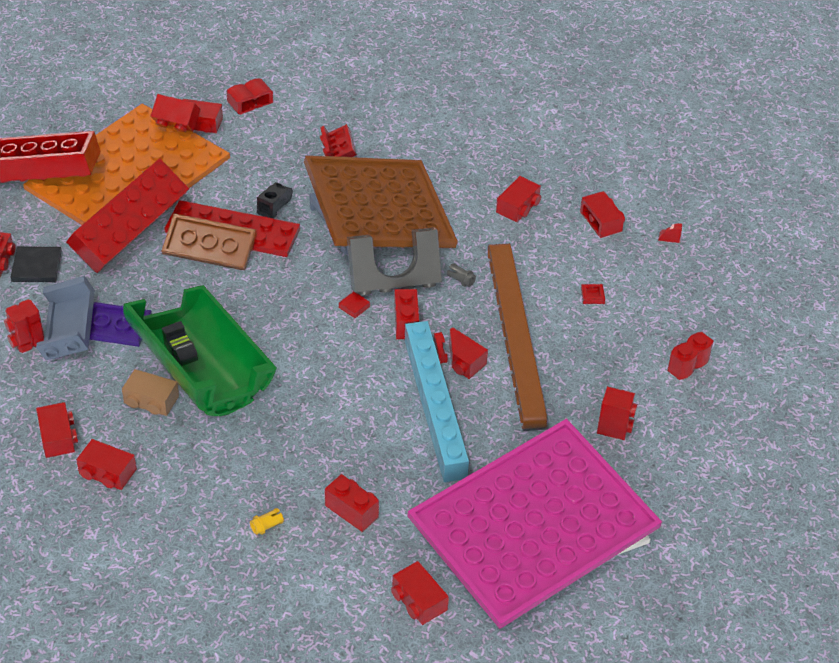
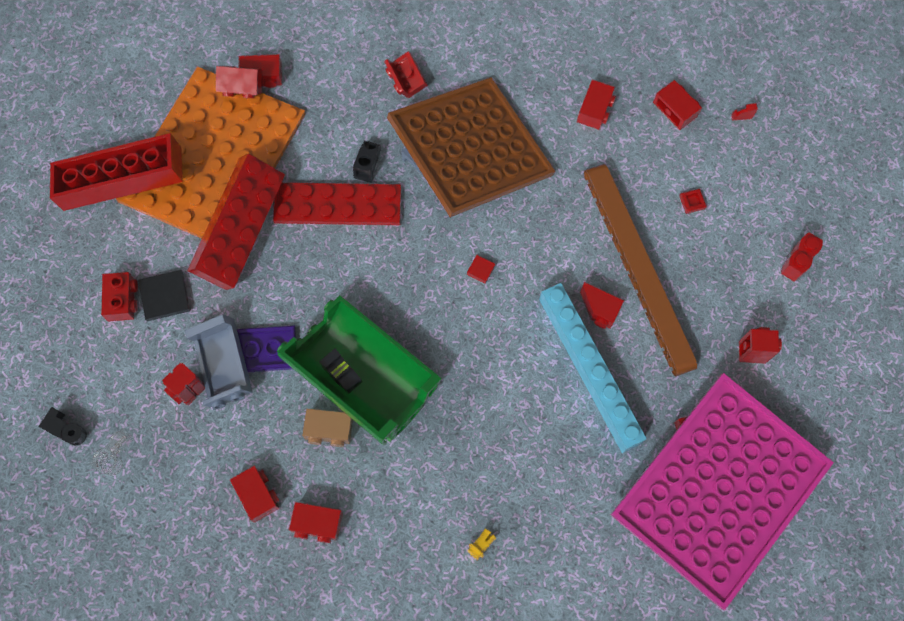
camera: 15 degrees left, 25 degrees up
(209, 242) = (322, 229): tile -> none
(249, 96) = (300, 32): red brick -> none
(352, 502) = (553, 505): red brick -> none
(405, 310) = (534, 271): red brick -> none
(419, 593) = (641, 588): red brick -> none
(423, 270) = (534, 218): dark grey arch -> none
(438, 341) = (575, 298): red tile -> none
(462, 275) = (569, 209): dark grey pin -> none

